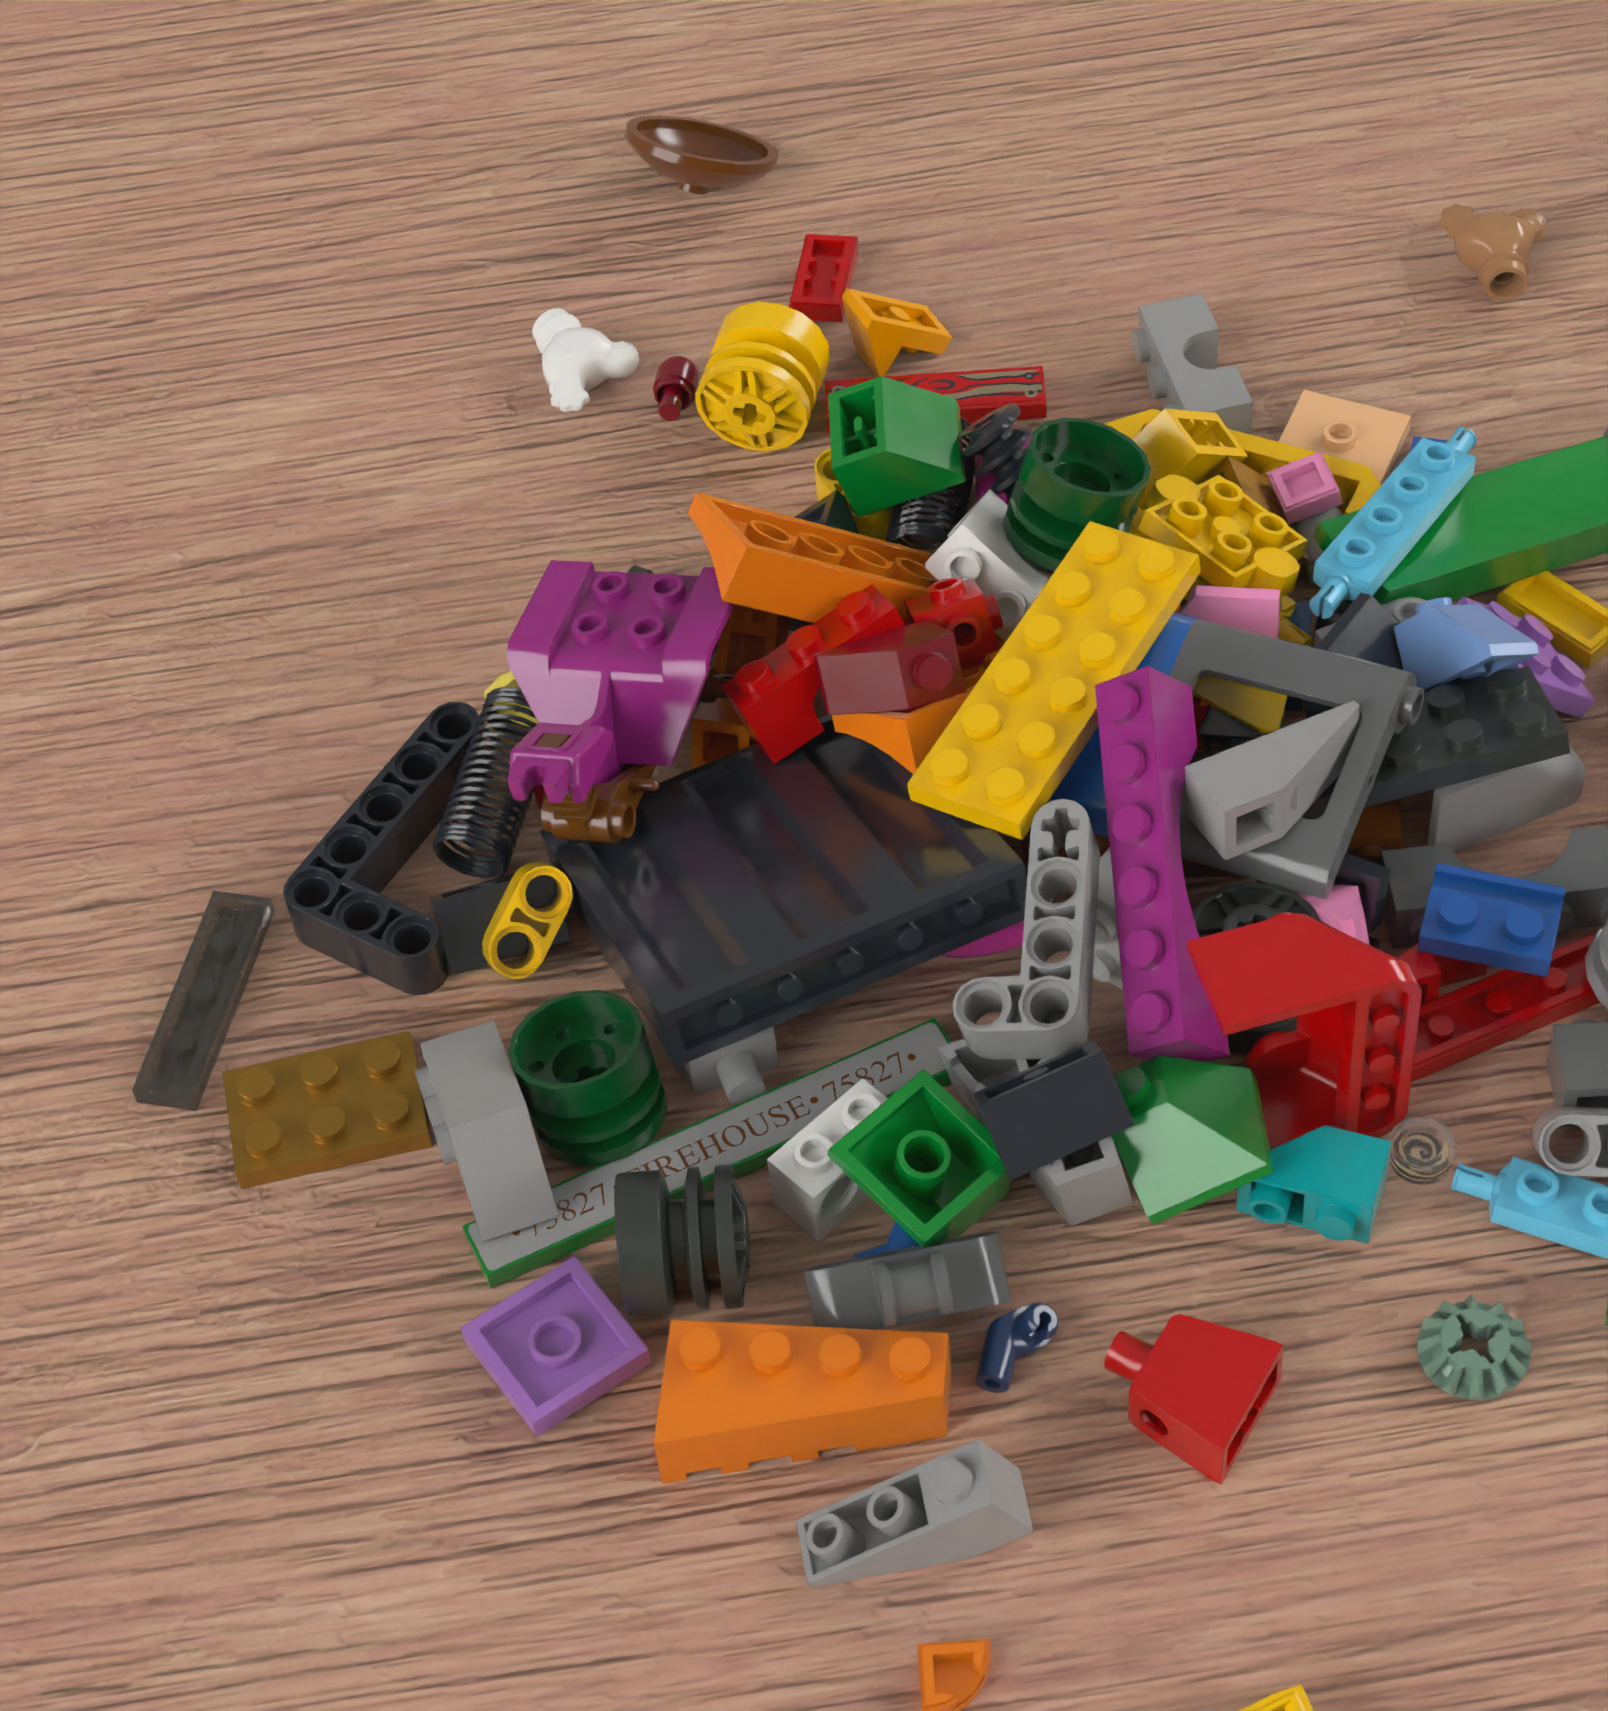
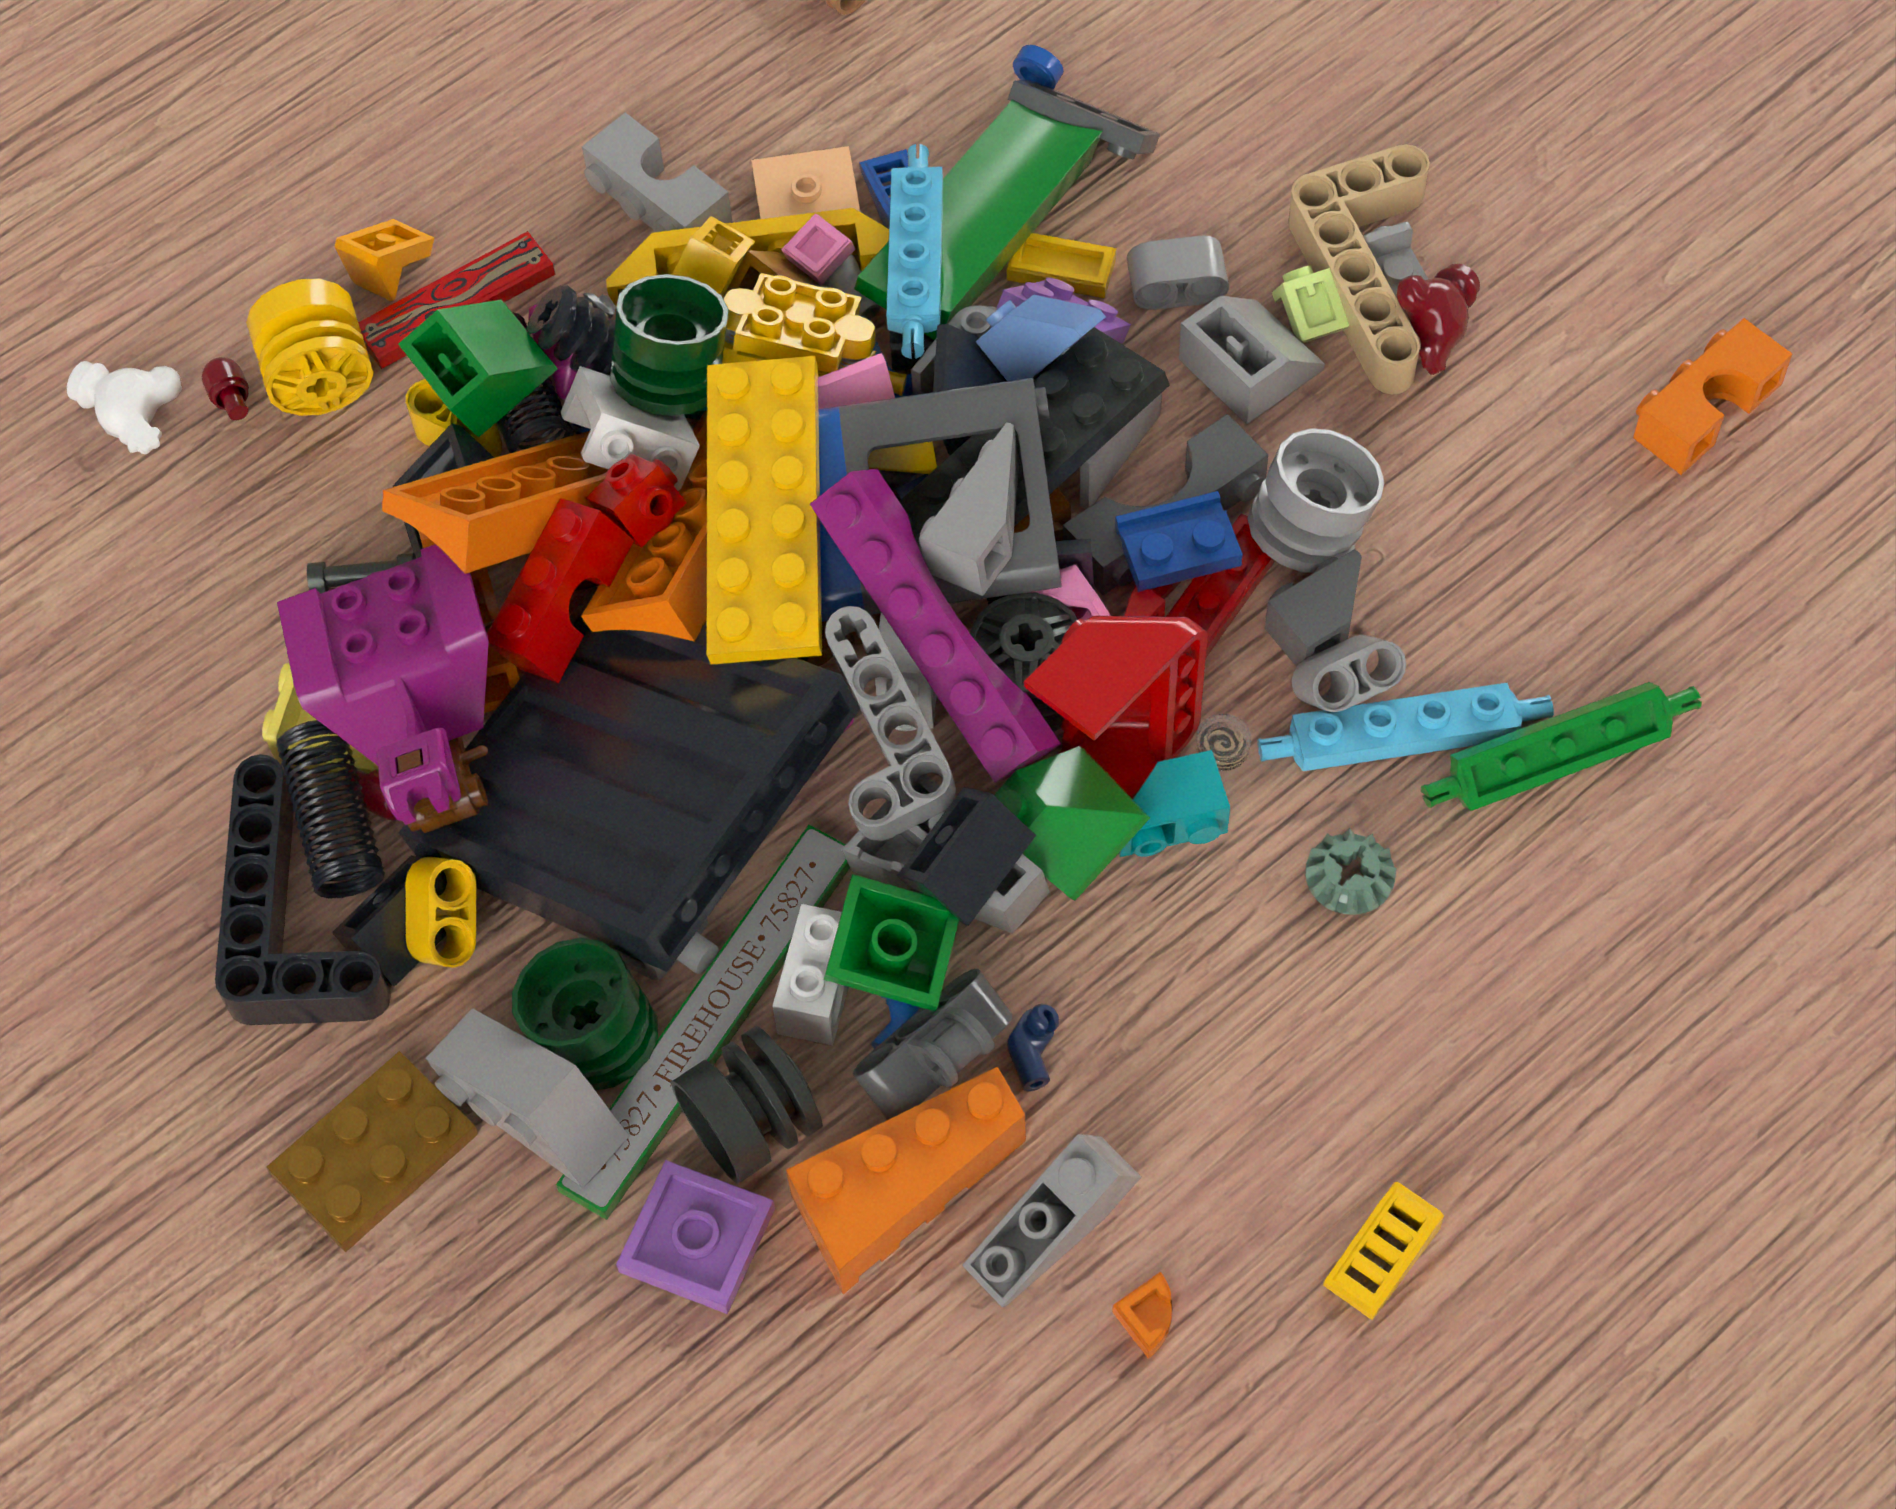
camera: 35 degrees left, 10 degrees up
(203, 1001) = (201, 1116): clear smoke tile -> none
(700, 152) = (103, 159): reddish brown dish -> none
(823, 276) = (288, 231): red plate -> none
(891, 670) = (625, 563): dark red slope -> none
(1198, 1388) = (1186, 1008): red torso -> none

